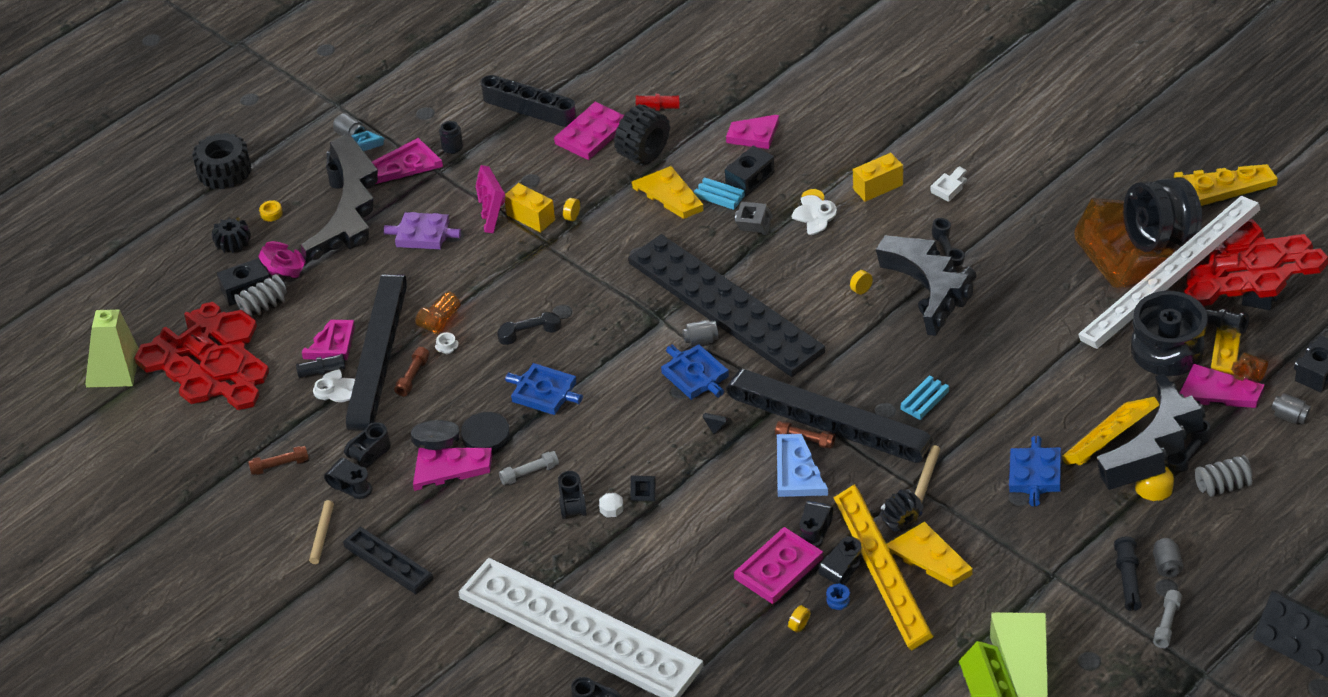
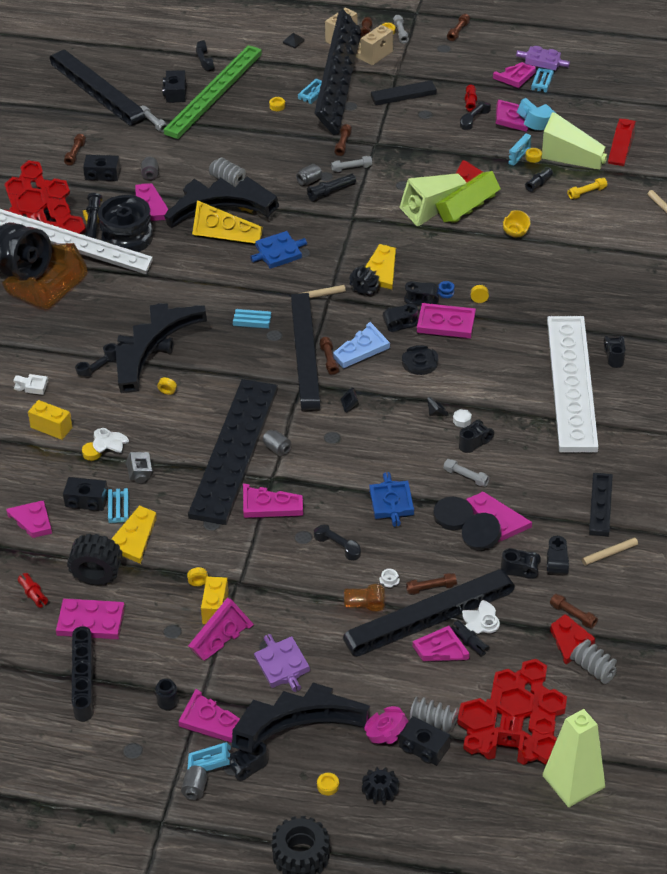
camera: 125 degrees left, 0 degrees up
(204, 437) = (594, 662): none -> light grey piece
(253, 442) = (569, 636): none -> red wing
(622, 296) = (270, 504): none -> dark pink wing
(695, 371) = (314, 430): blue plate -> none
(736, 515) = (420, 360): none -> black tile
(883, 568) = (416, 273): yellow tile -> none
(1212, 623) = (340, 147): none -> copper bar
(1249, 367) = (132, 186): clear orange piece -> none

